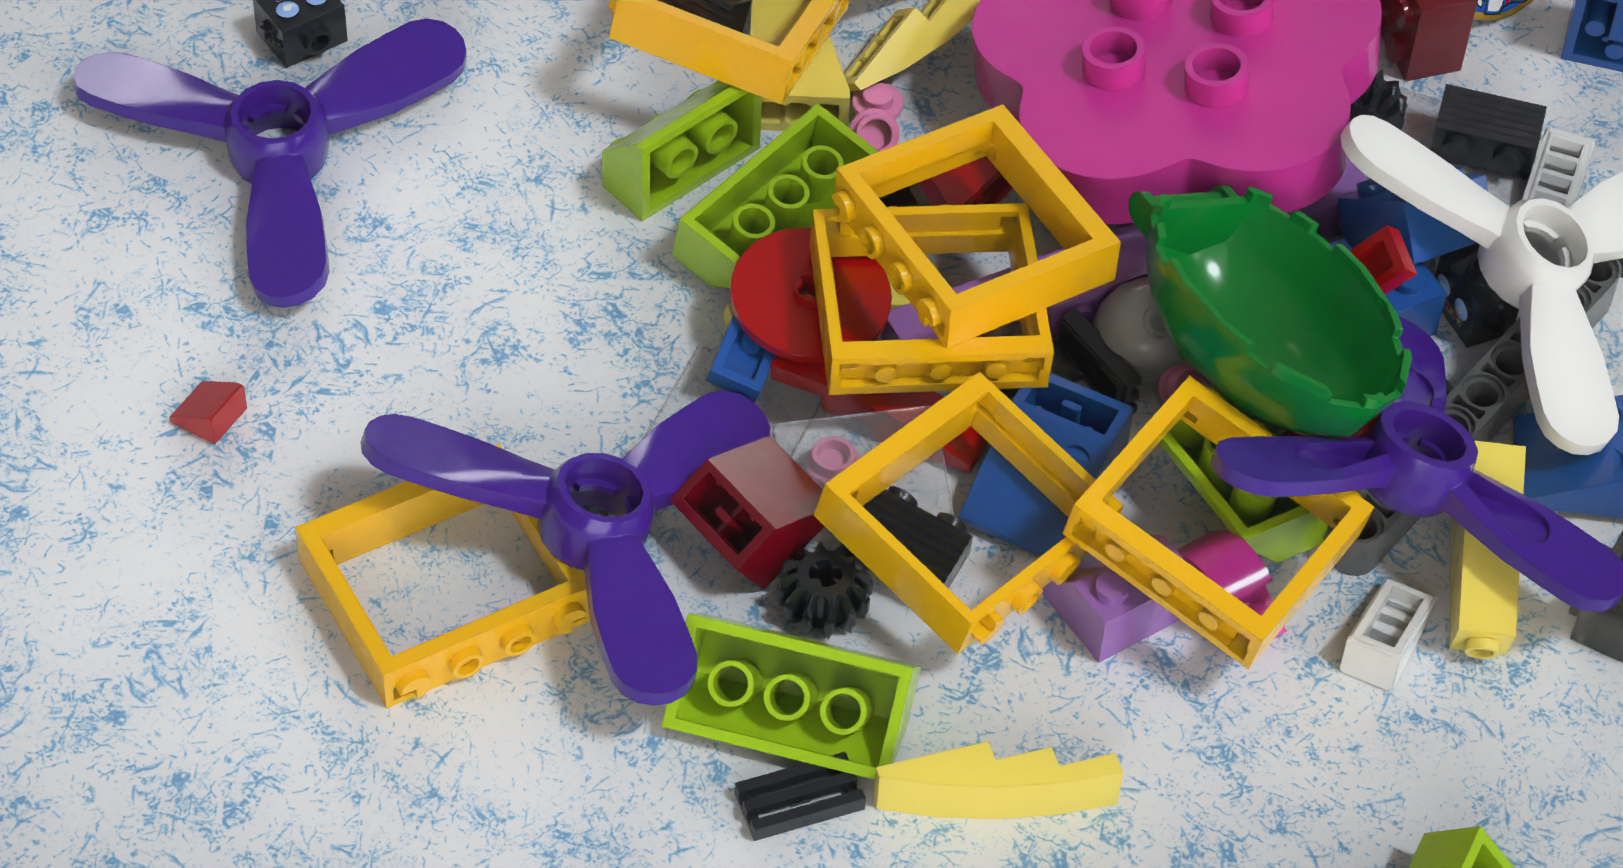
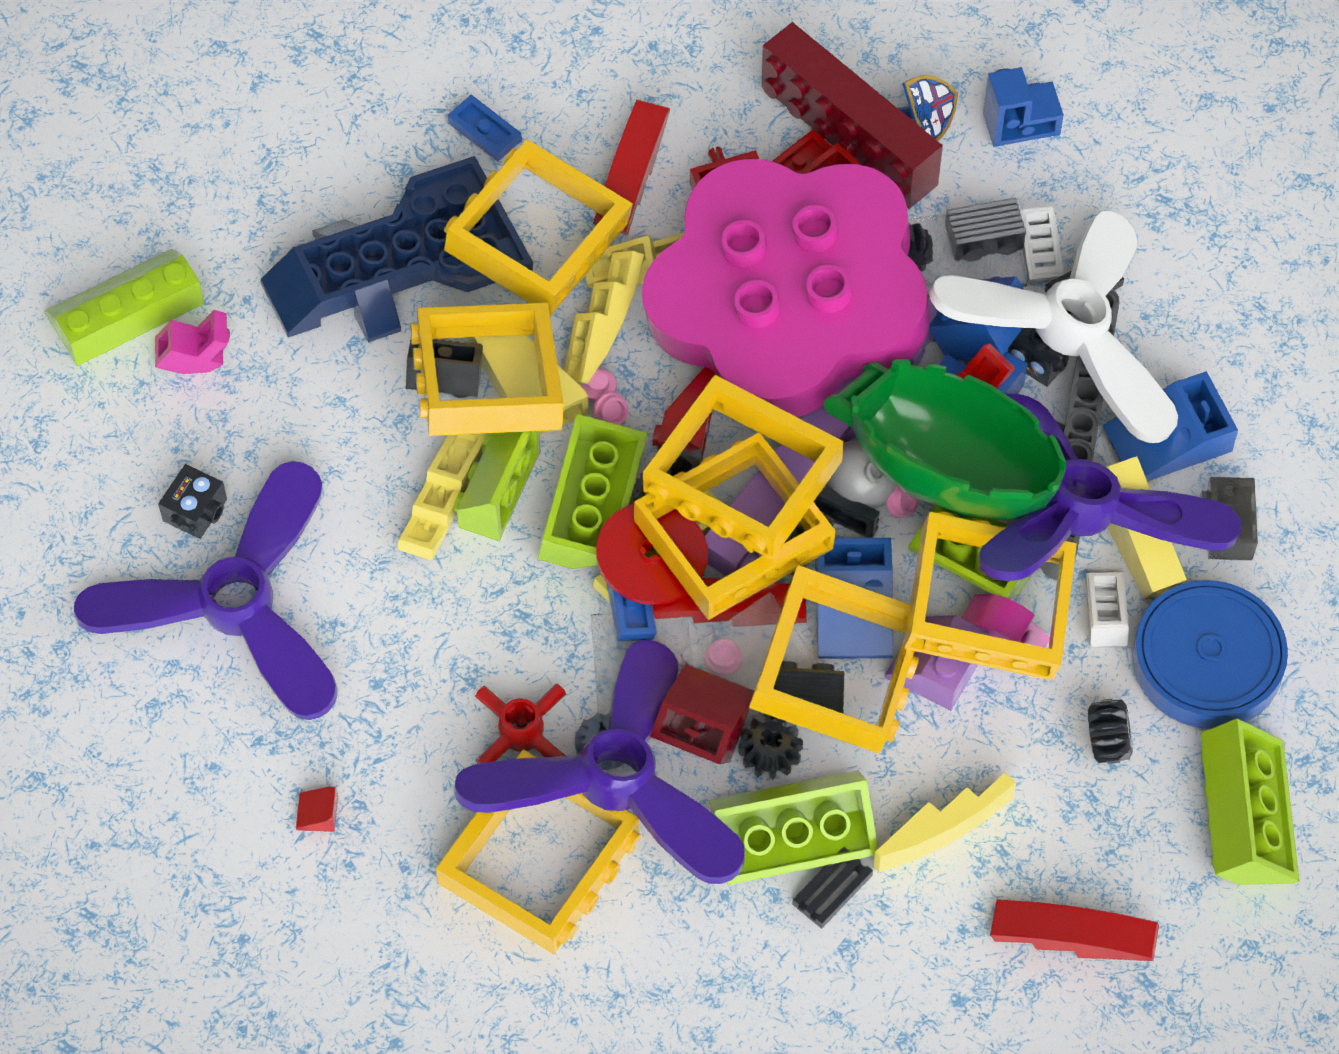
camera: 25 degrees left, 10 degrees up
(521, 415) = (520, 712): none -> red bar
(577, 144) = (435, 504): none -> light yellow slope
(1295, 771) = (1110, 731): none -> black gear
(1499, 743) = (1209, 654): none -> blue brick

